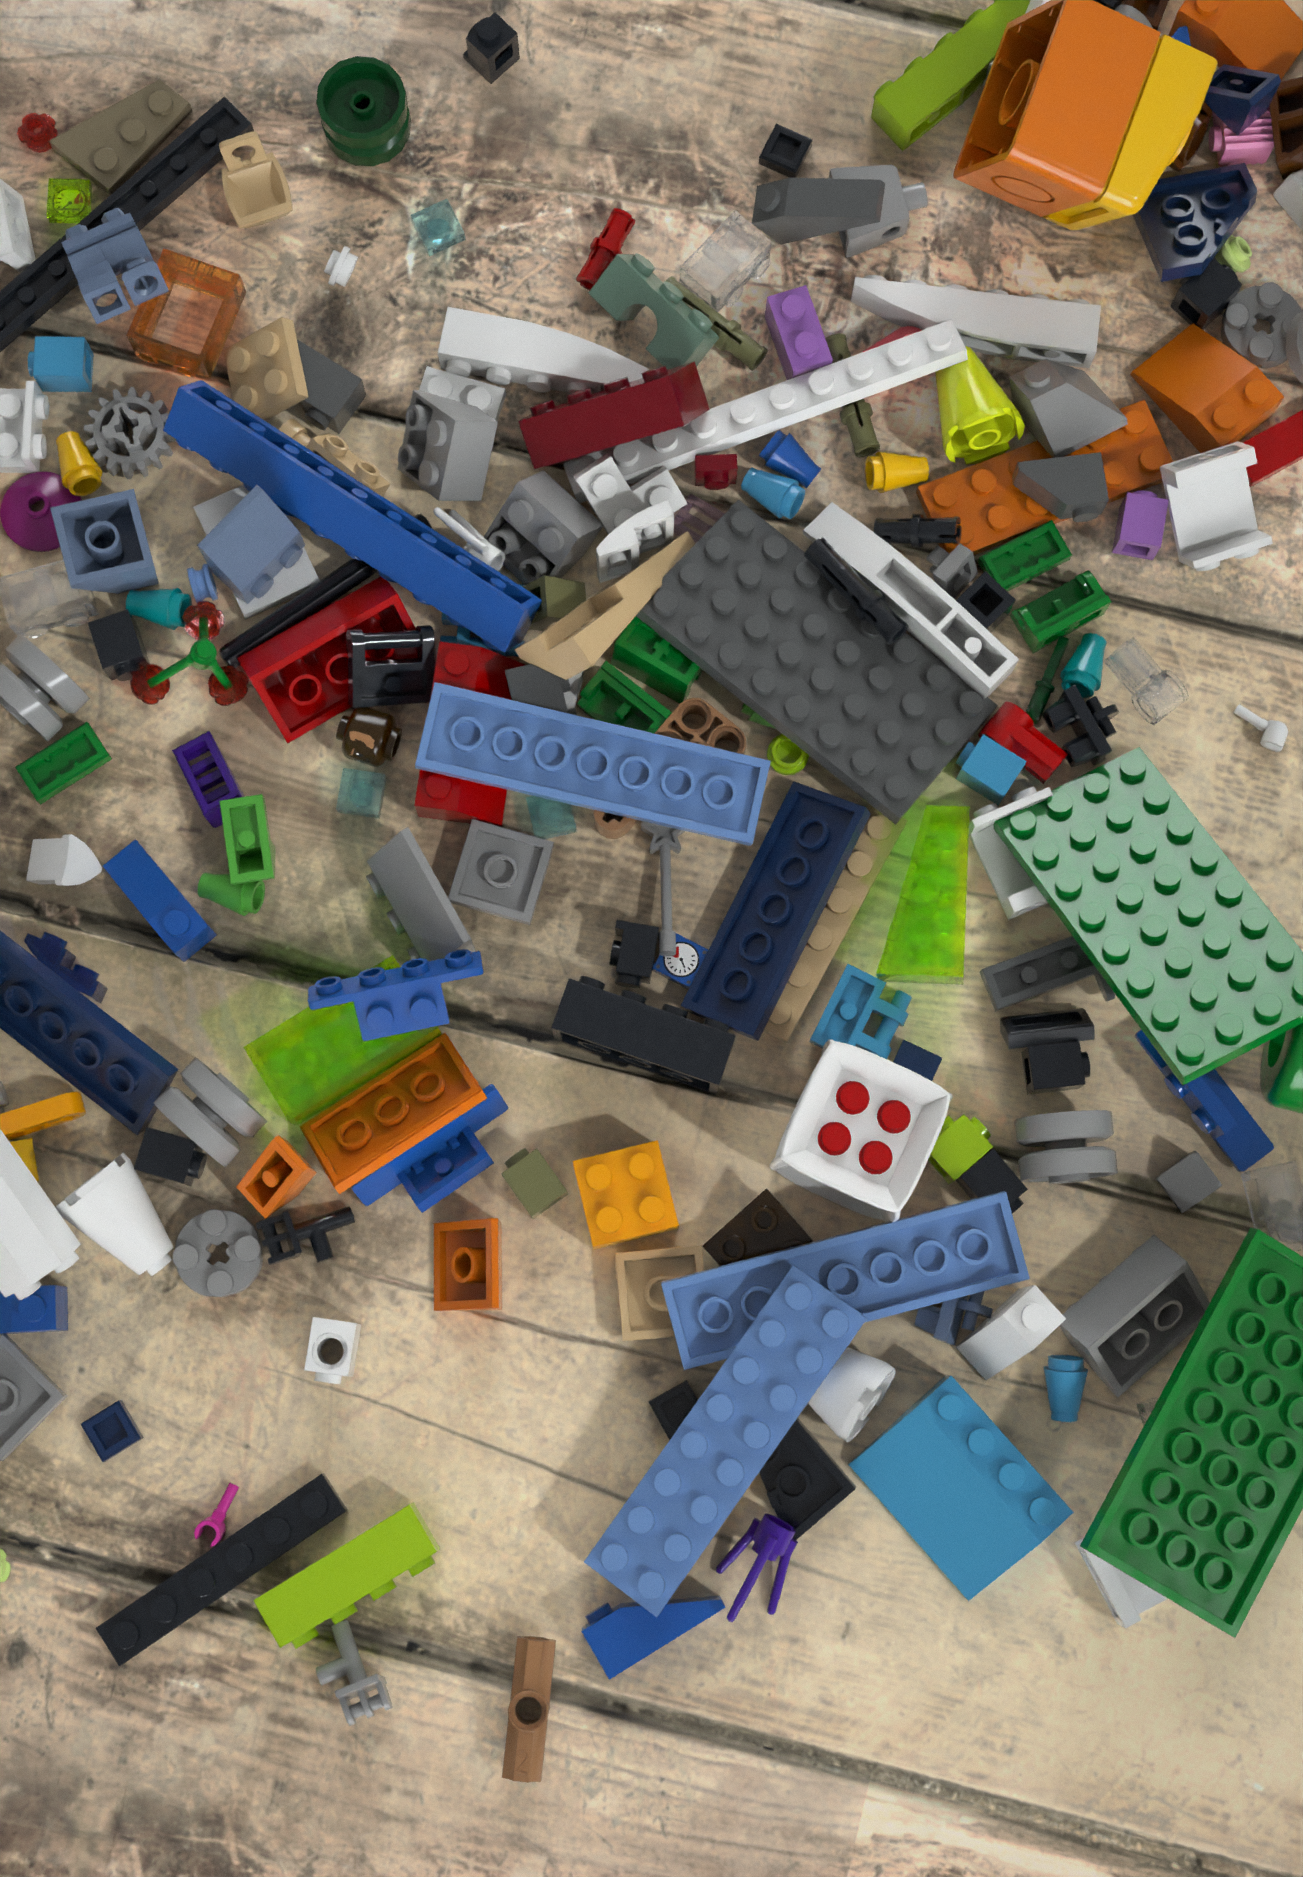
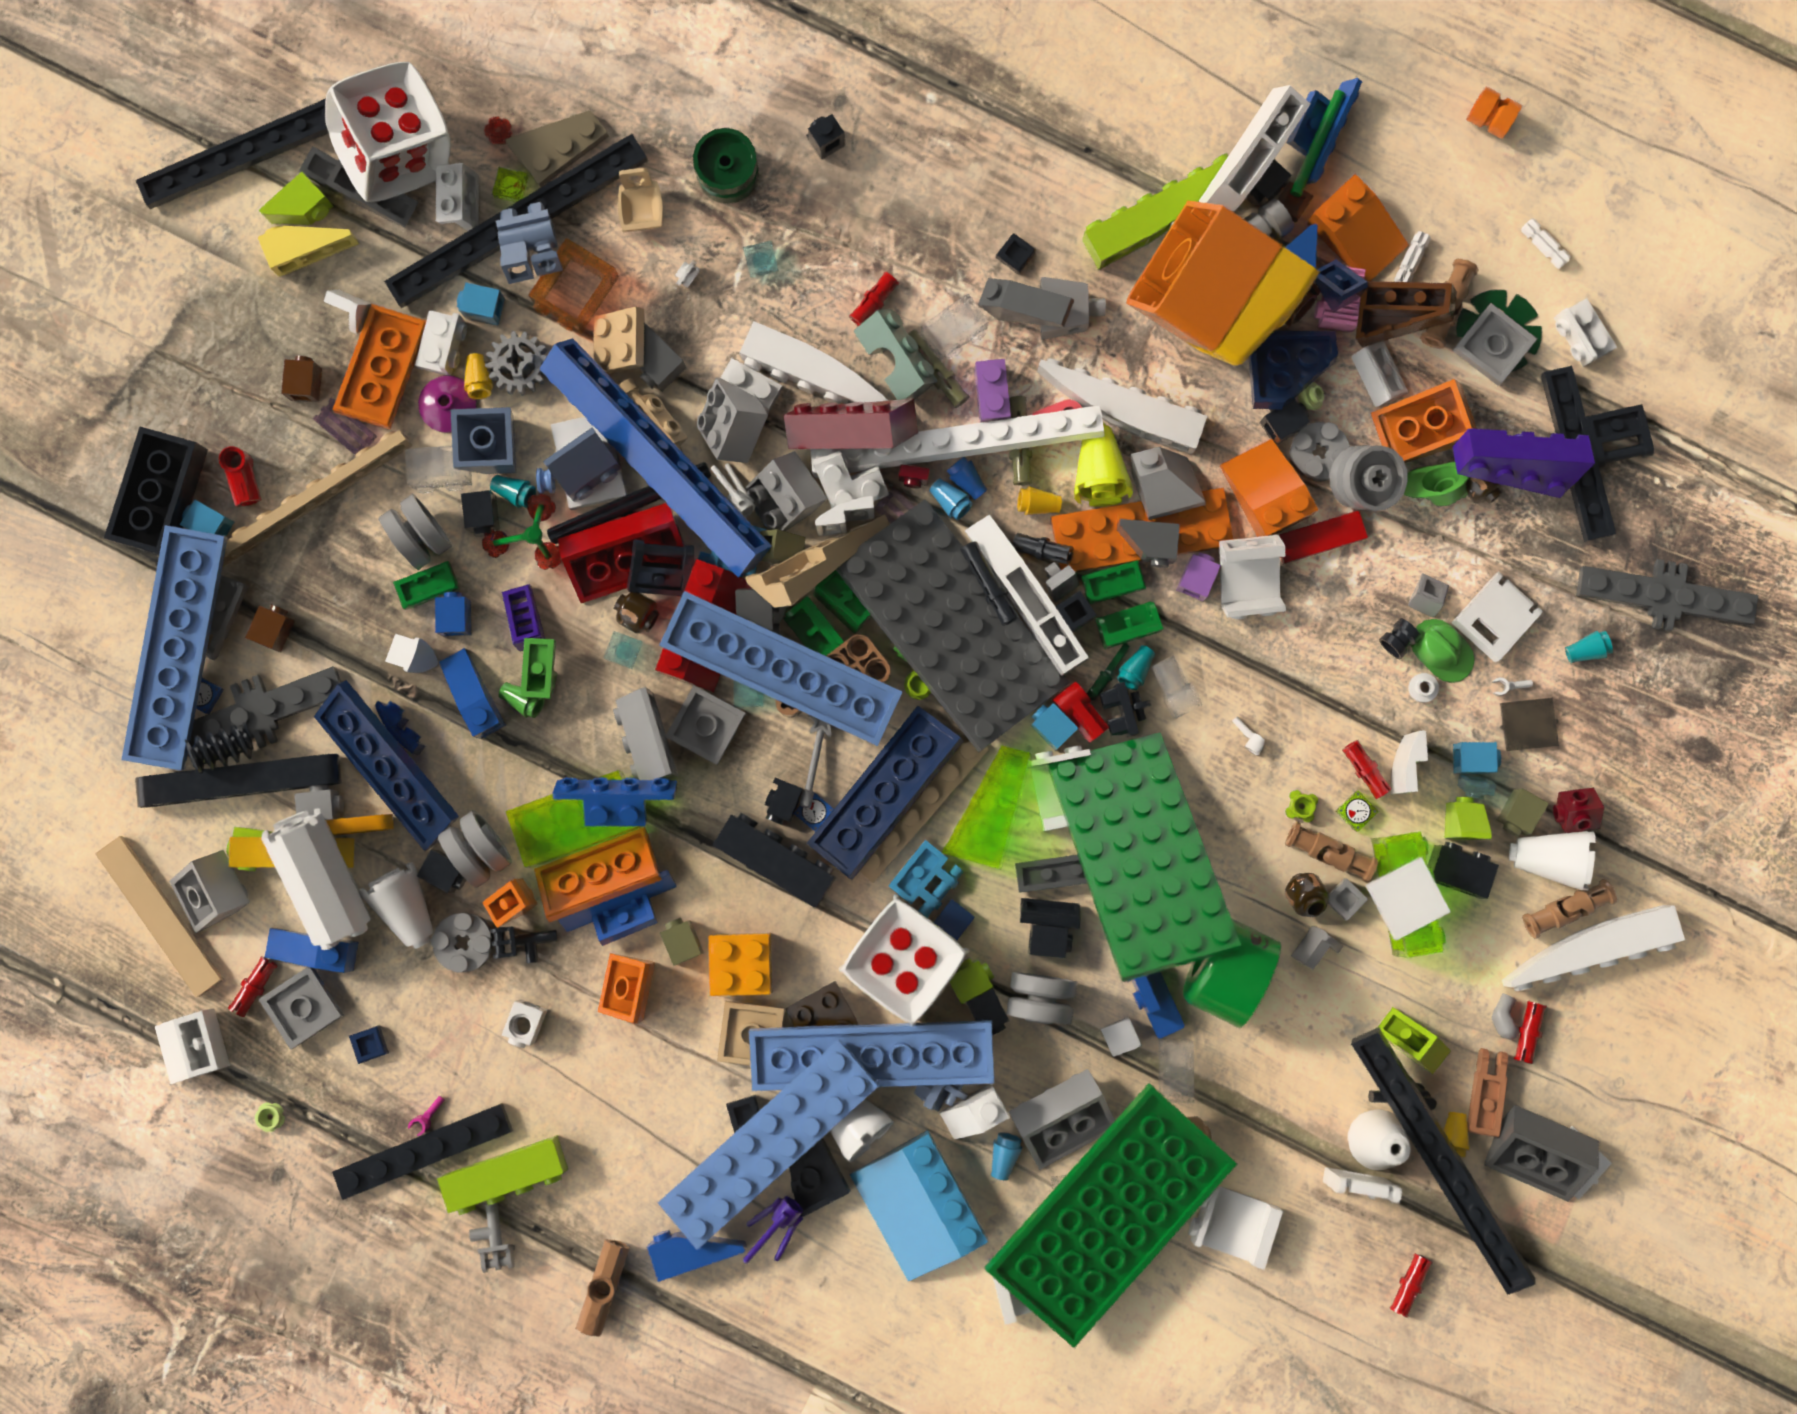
camera: 15 degrees right, 5 degrees up
(110, 795) = (453, 615): none -> blue brick

